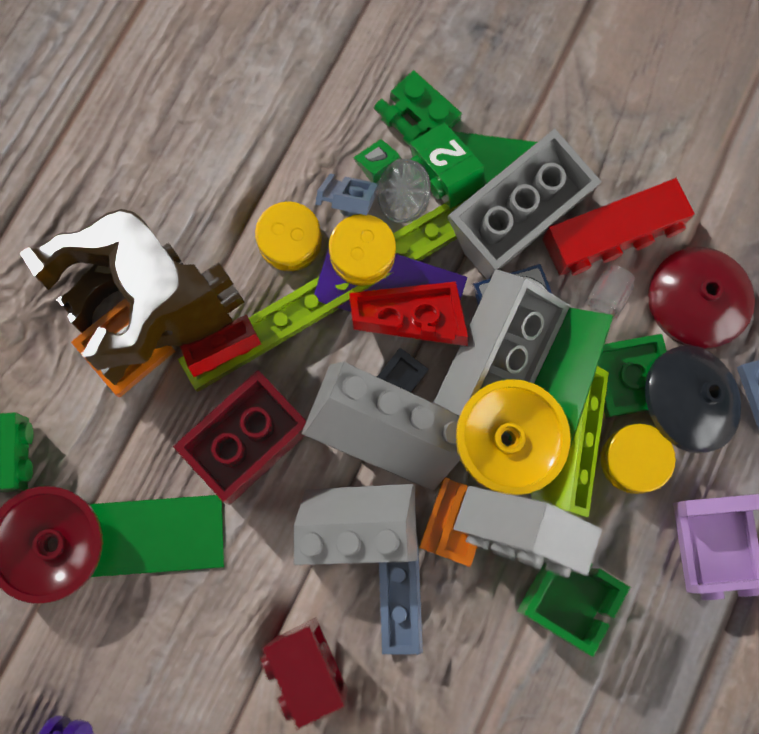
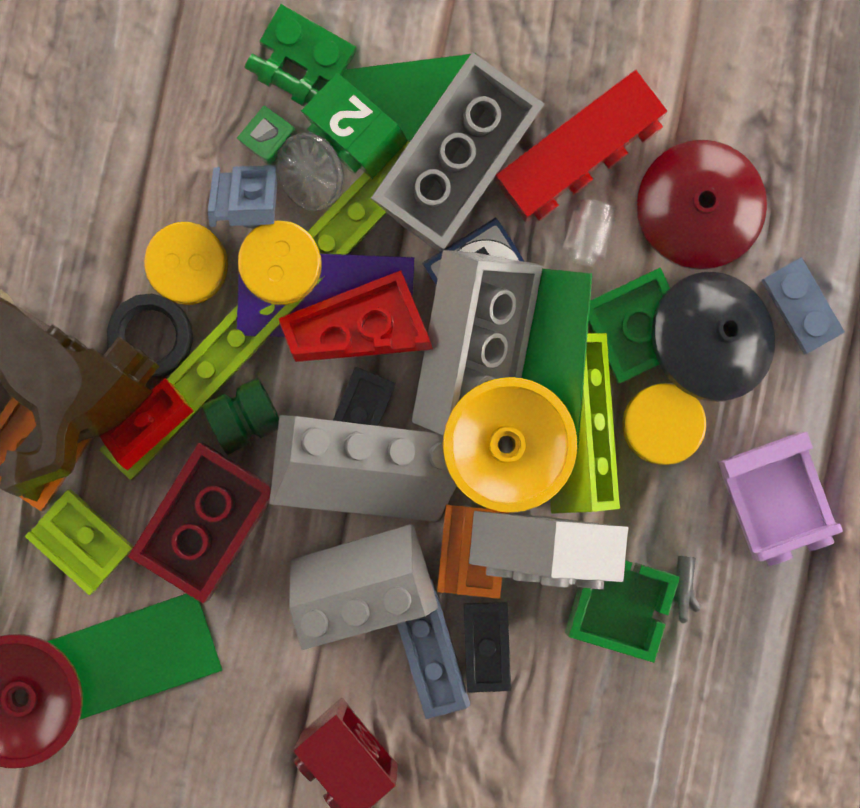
camera: 15 degrees left, 10 degrees up
(139, 429) = (79, 542): none -> lime plate
(252, 257) = (147, 302): none -> black tyre
(298, 362) = (242, 416): none -> dark green wheel
(449, 606) = (487, 647): none -> black plate
(625, 612) = (684, 592): none -> dark grey bar

